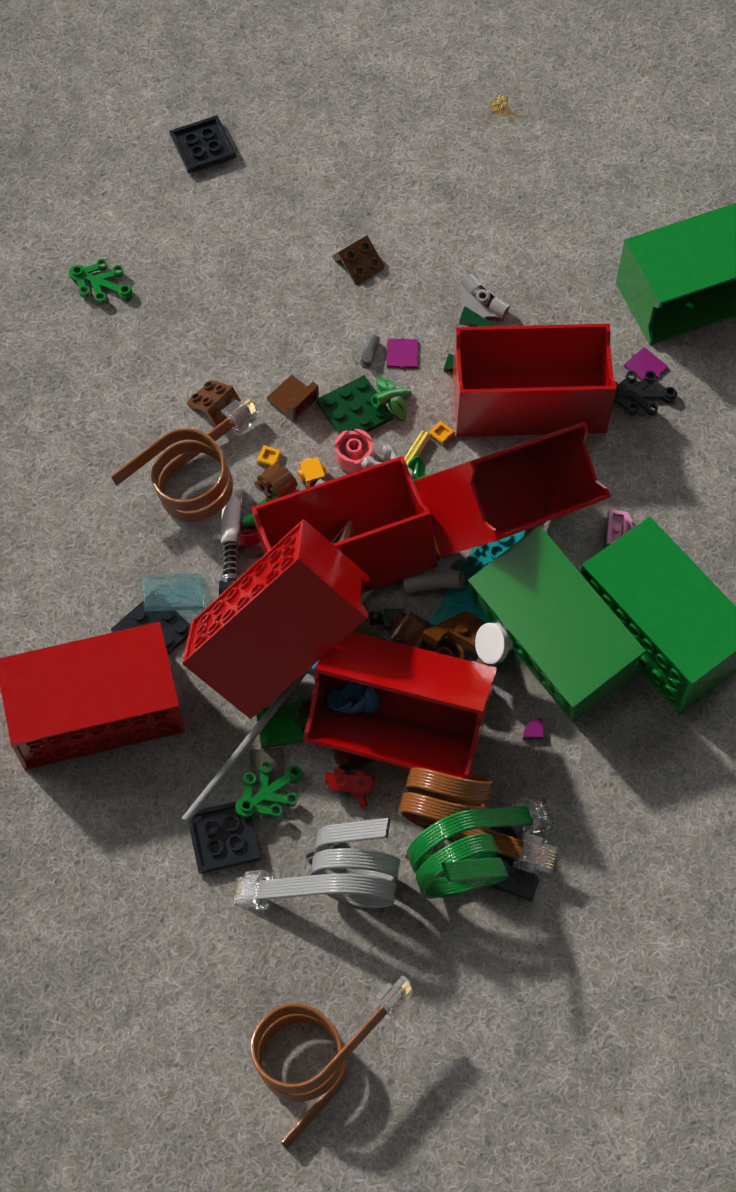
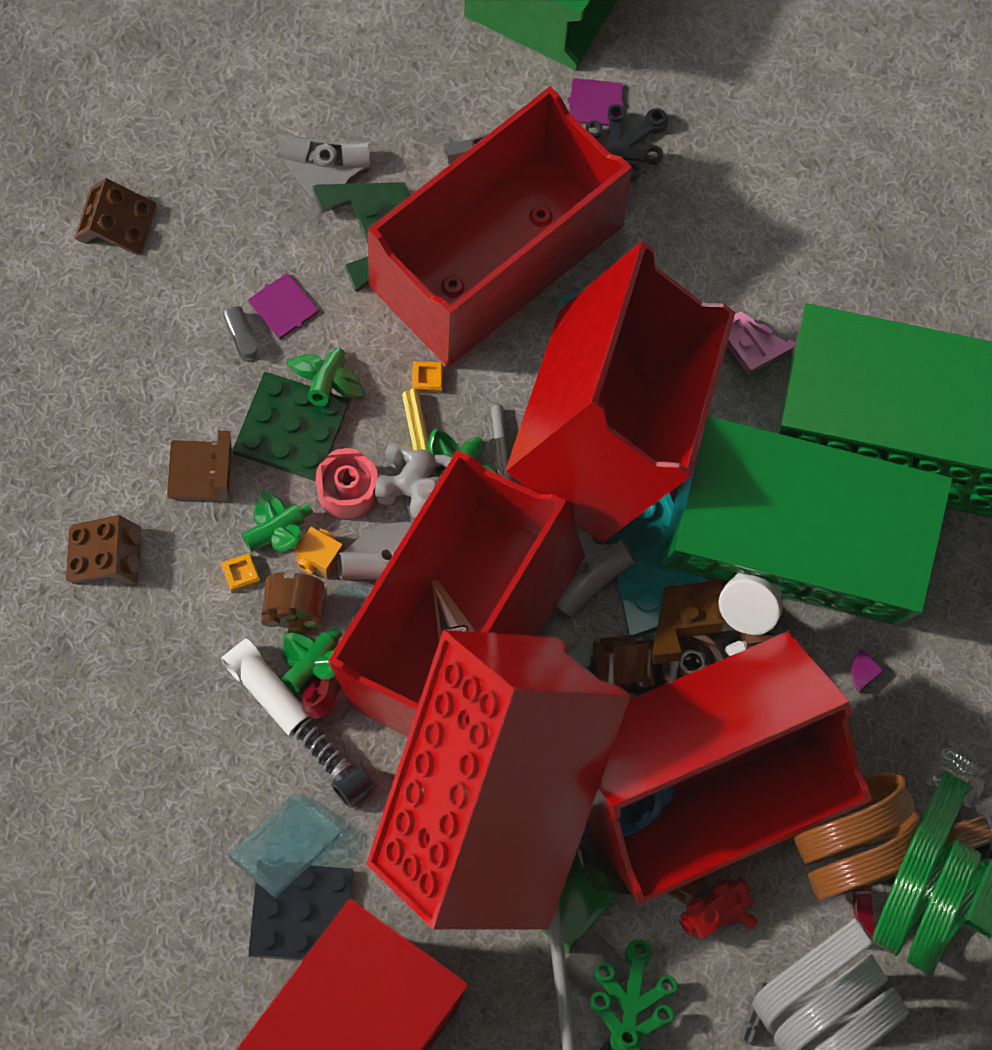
camera: 45 degrees left, 5 degrees up
(237, 421) = (160, 554): dark orange piece -> none
(304, 446) = (276, 524): none -> green plant

